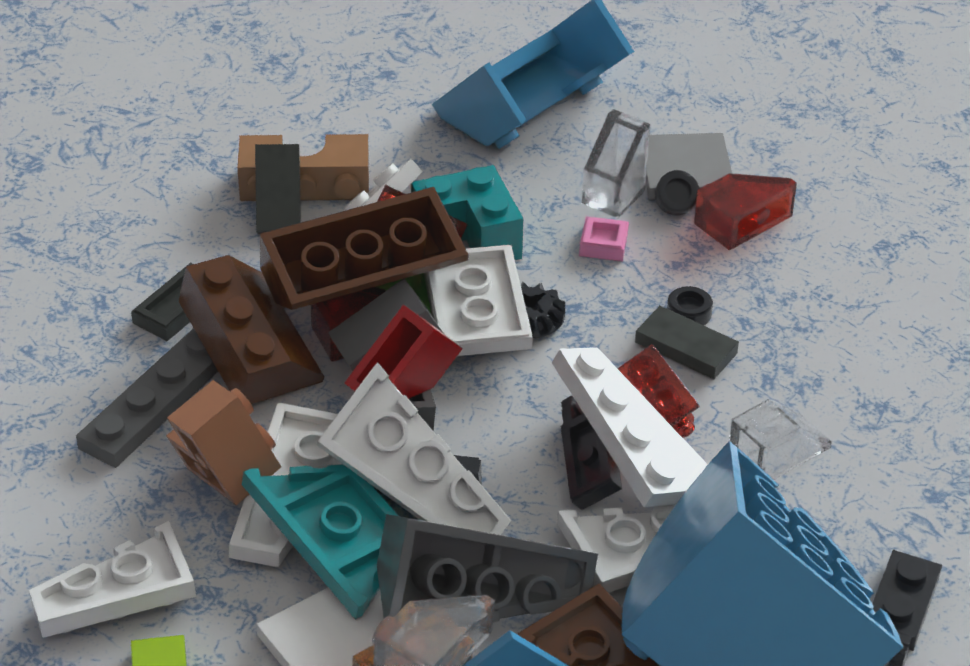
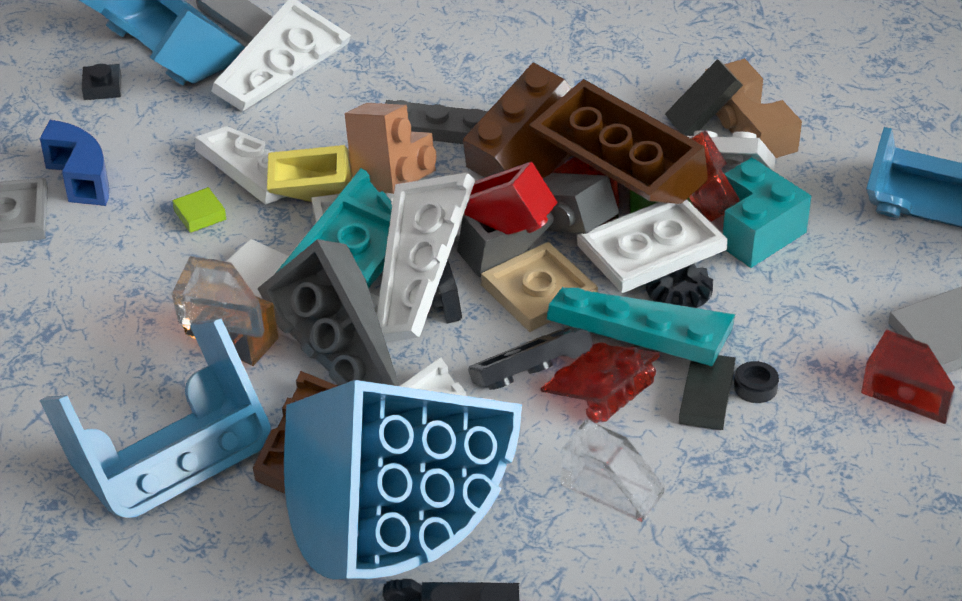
camera: 70 degrees right, 0 degrees up
(201, 523) = (309, 172): none -> light yellow slope
(478, 411) = (532, 281): none -> tan tile
(604, 238) = (807, 306): bright pink tile -> none
(605, 321) = (654, 325): none -> teal wing
(617, 165) = (880, 274): clear slope -> none
(638, 438) = (543, 361): white wing -> none
(676, 192) = (898, 321): black tile -> none

